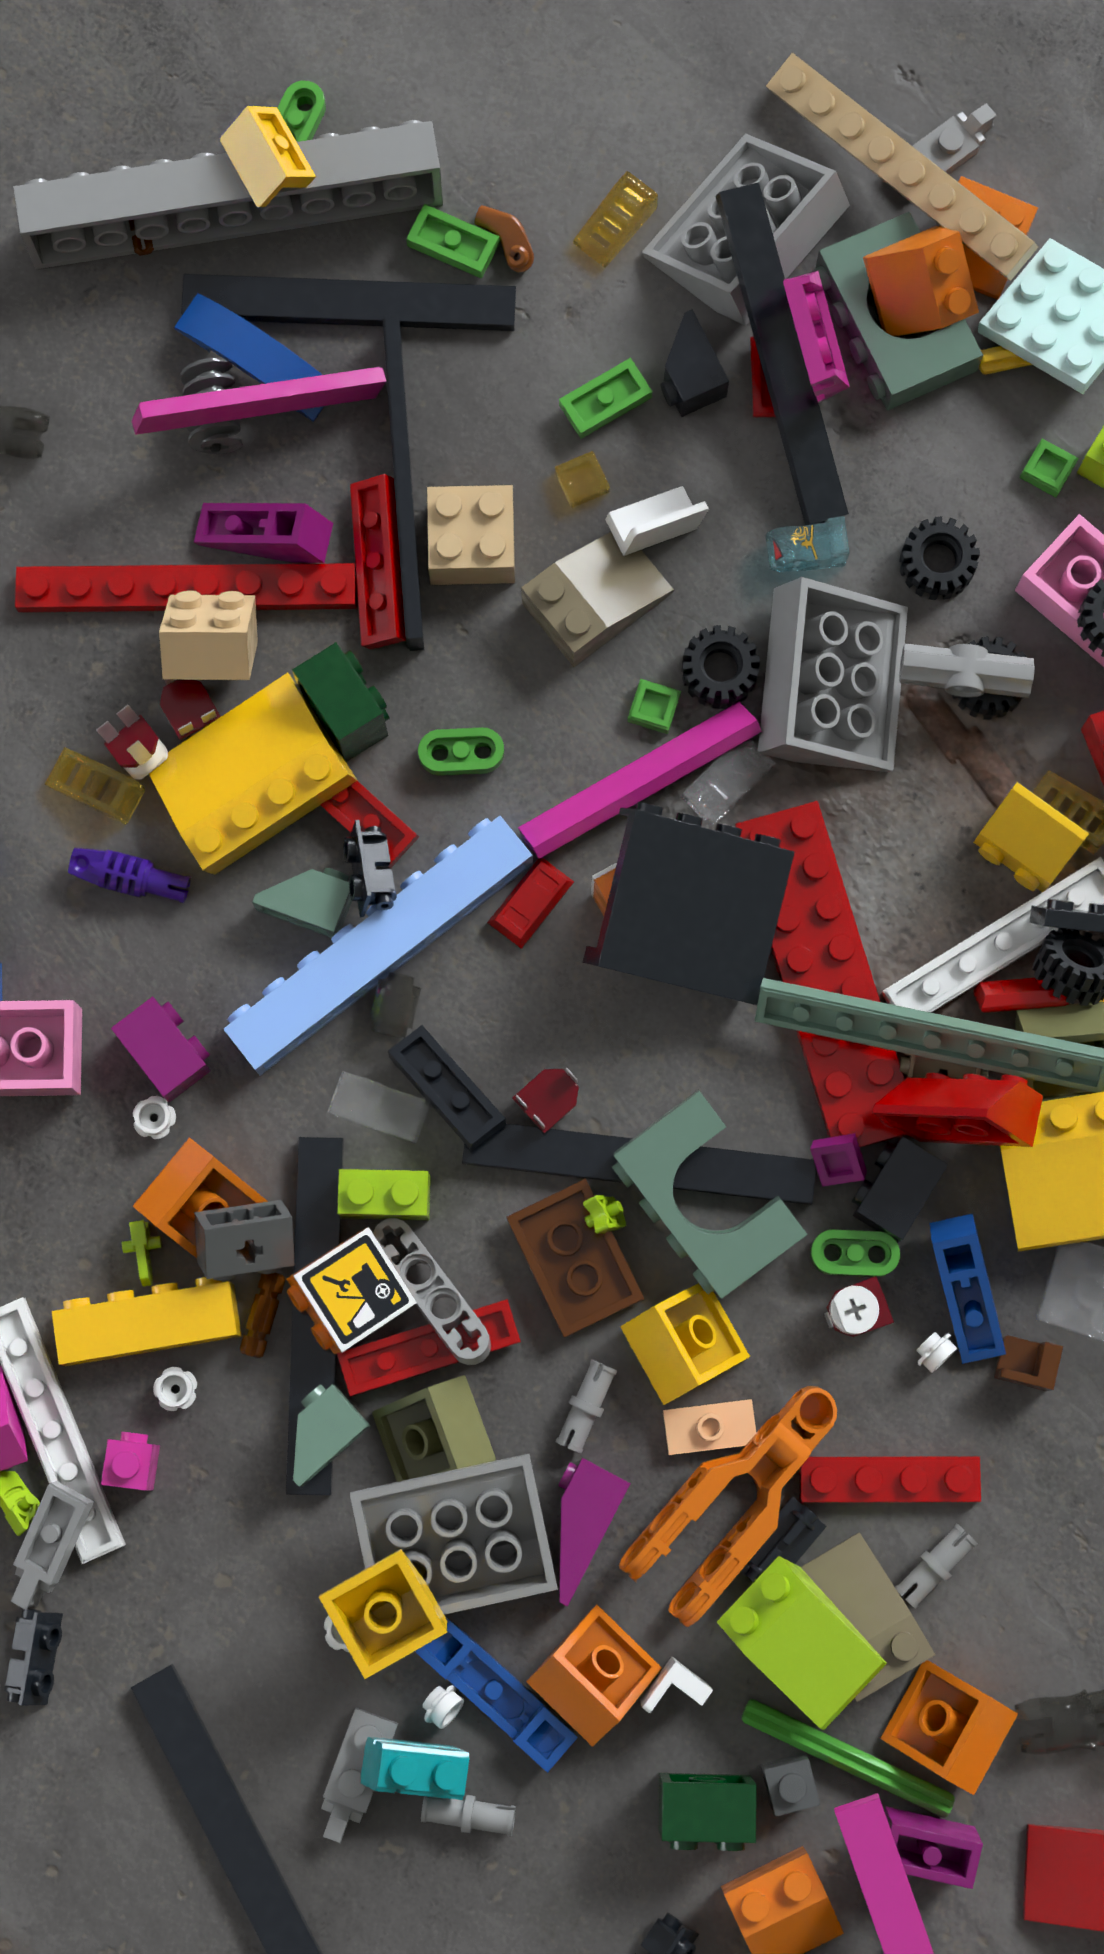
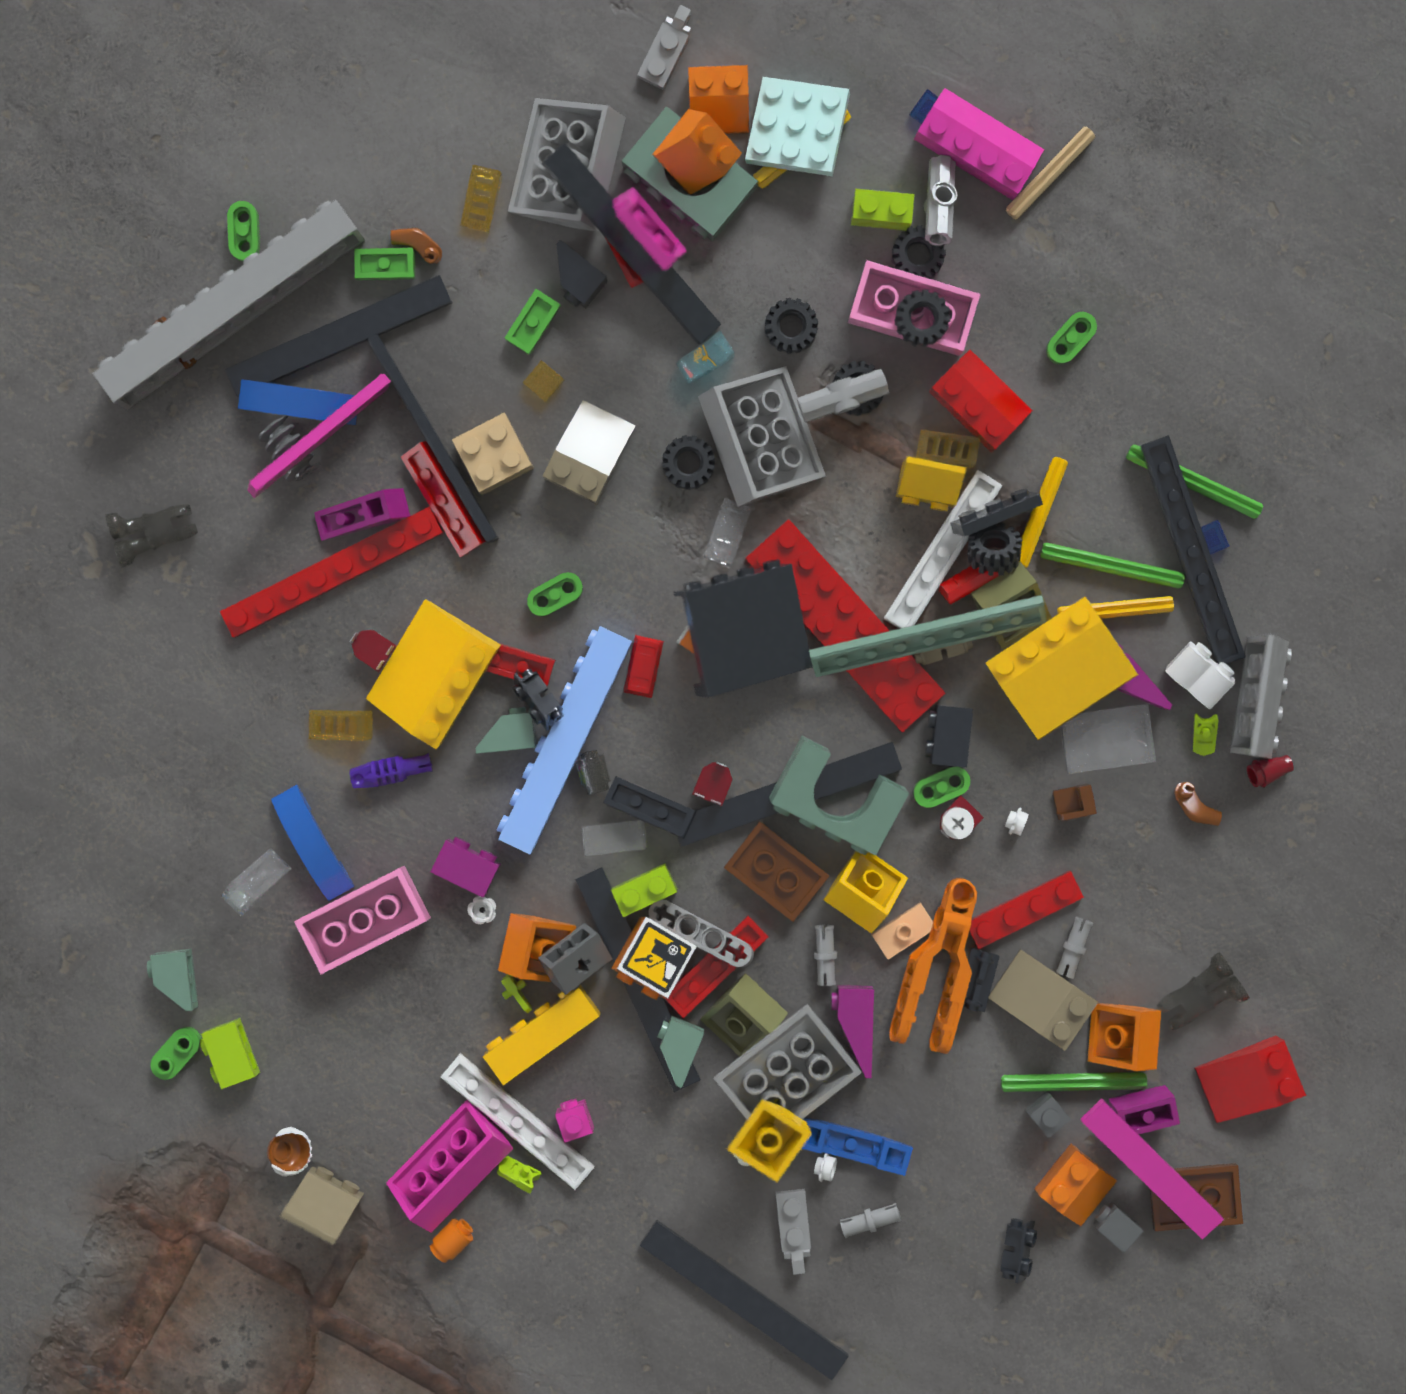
camera: 25 degrees left, 10 degrees up
(32, 1679) = (571, 1243): black hinge -> none
(49, 1543) = (550, 1188): light grey hinge -> none
(135, 745) = (352, 688): piece -> none
(163, 1389) = (572, 1068): white plate -> none
(208, 636) = (365, 601): tan brick -> none
(262, 1315) = (607, 995): reddish brown axle -> none
(265, 154) = (243, 275): yellow panel -> none
(341, 701) = (466, 602): dark green brick -> none
(414, 1768) = (827, 1212): teal brick -> none
(594, 1675) = (905, 1107): orange slope -> none
(605, 1214) = (782, 838): lime piece -> none
(639, 779) = (673, 558): dark pink tile -> none
(654, 706) = (659, 506): bright green tile -> none
(655, 520) = (602, 387): white panel -> none
(681, 1677) = (956, 1086): white panel -> none
(707, 1810) = (1007, 1153): dark green brick -> none
(801, 1641) = (1017, 1032): lime slope -> none
(838, 1160) = (905, 736): magenta plate -> none
(902, 166) = (647, 78): tan plate -> none
(964, 1110) = (967, 672): red slope -> none
(967, 1288) = (1017, 775): blue slope -> none
(1049, 468) = (832, 231): bright green tile -> none

